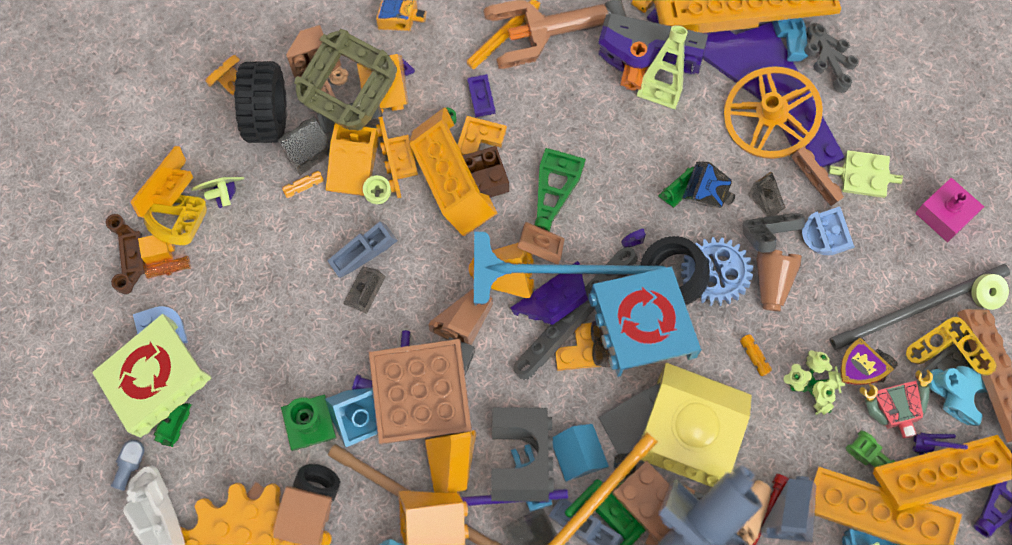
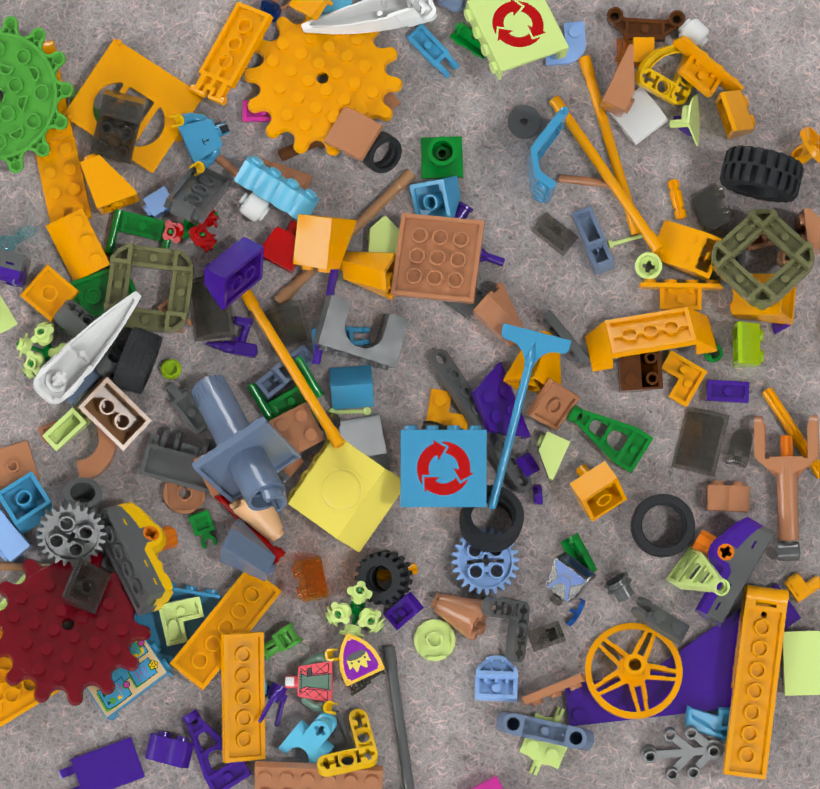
camera: 105 degrees right, 15 degrees up
(123, 206) = (695, 31): none -> white head
(189, 296) = (589, 75): none -> light orange piece
(190, 463) = (431, 49): none -> dark azure hinge
(192, 252) = (621, 88): none -> nougat slope
(206, 149) = (734, 113): none -> light orange slope
(223, 238) = (642, 118): none -> white slope
(235, 310) = (648, 235): none -> light orange piece
(250, 338) = (524, 131): none -> dark grey piece
(292, 315) = (541, 184): none -> dark azure hinge
(302, 273) = (582, 180): none -> nougat piece
(352, 218) = (611, 244): none -> yellowish green piece
(410, 459) = (383, 236): none -> yellowish green slope
(433, 88) = (746, 344): none -> lime slope
(456, 266) = (577, 352): none -> dark grey plate
(524, 74) = (740, 440): none -> clear smoke plate
(536, 105) = (700, 441): none -> clear smoke slope
(582, 72) = (727, 497): none -> nougat brick
(589, 235) = (551, 452): none -> yellowish green slope
(600, 430) = (366, 411): none -> yellowish green hinge
(607, 255) = (527, 464): none -> dark purple tile
(613, 181) = (597, 490): none -> light orange brick
(627, 96) = (688, 525): none -> black tyre
(697, 143) = (620, 587): none -> dark grey piece
(716, 102) = (660, 620): none -> dark grey hinge
(741, 177) = (576, 612): none -> blue piece
(752, 361) = (399, 573): none -> black tyre
(793, 336) = (403, 610): none -> dark purple slope
(797, 436) = (311, 579): none -> clear orange slope
(807, 308) = (432, 648): none -> yellowish green tile
(864, 193) = (545, 730): none -> sand blue plate

